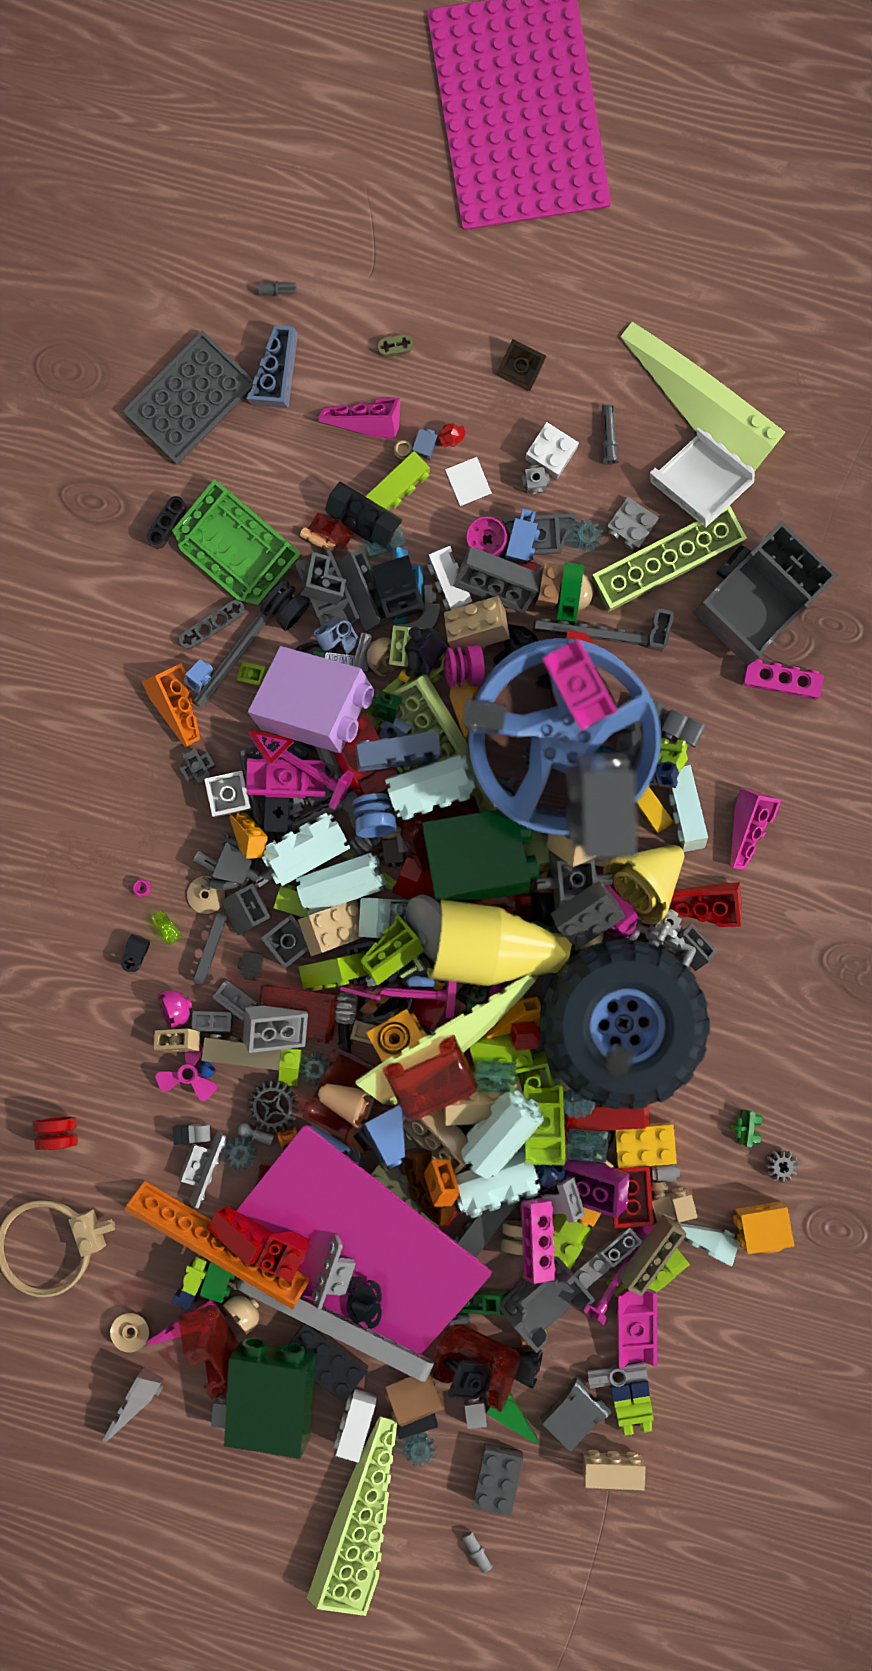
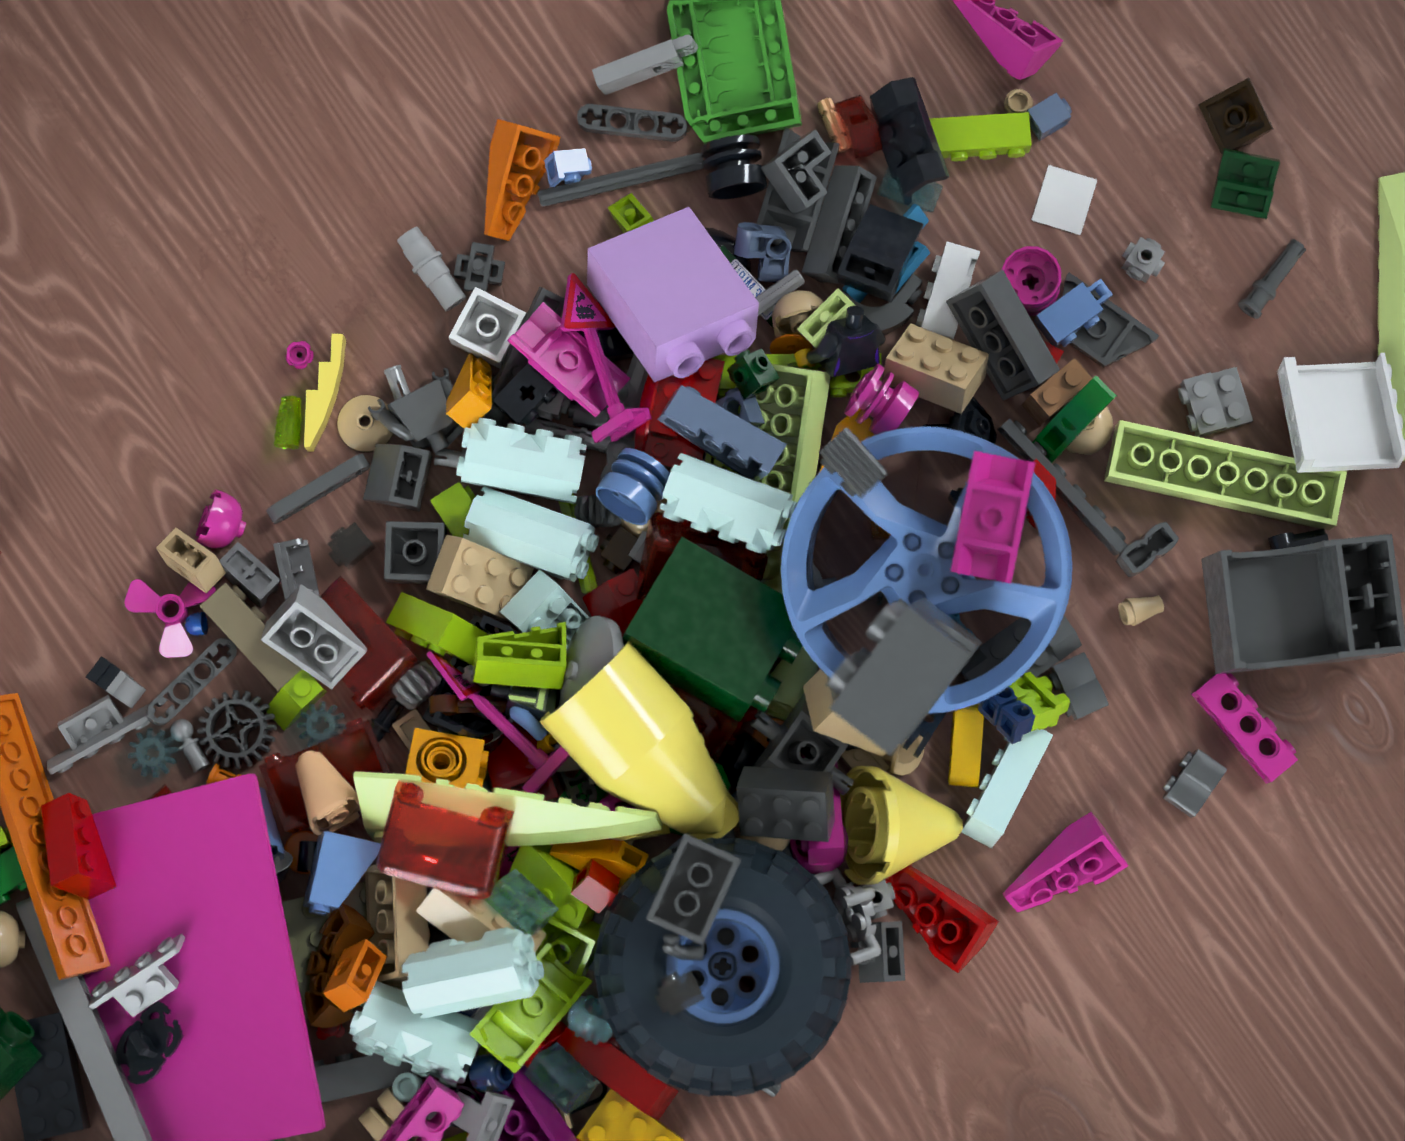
camera: 35 degrees right, 5 degrees down
(136, 950) = (230, 420): black piece -> none
(172, 787) = (431, 268): none -> light grey piece
(174, 902) = (321, 401): none -> light yellow slope
(193, 589) = (643, 64): none -> light grey hinge
(229, 1101) = (193, 683): none -> dark grey beam
(283, 1254) = (103, 907): red slope -> none
(391, 674) = (789, 344): none -> orange piece
(451, 435) = (1088, 130): red rock -> none
(513, 1214) = (406, 1086): none -> light aqua tile
(552, 450) = (1190, 242): white brick -> none
(554, 396) = (1245, 183): none -> dark green slope
(583, 1002) = (693, 889): none -> dark grey brick
(593, 532) = (1141, 366): clear light blue gear -> none
(602, 1037) = (681, 951): none -> dark grey arm
(680, 664) = (1137, 610): none -> tan cone
(780, 730) = (1194, 782): none -> dark grey brick

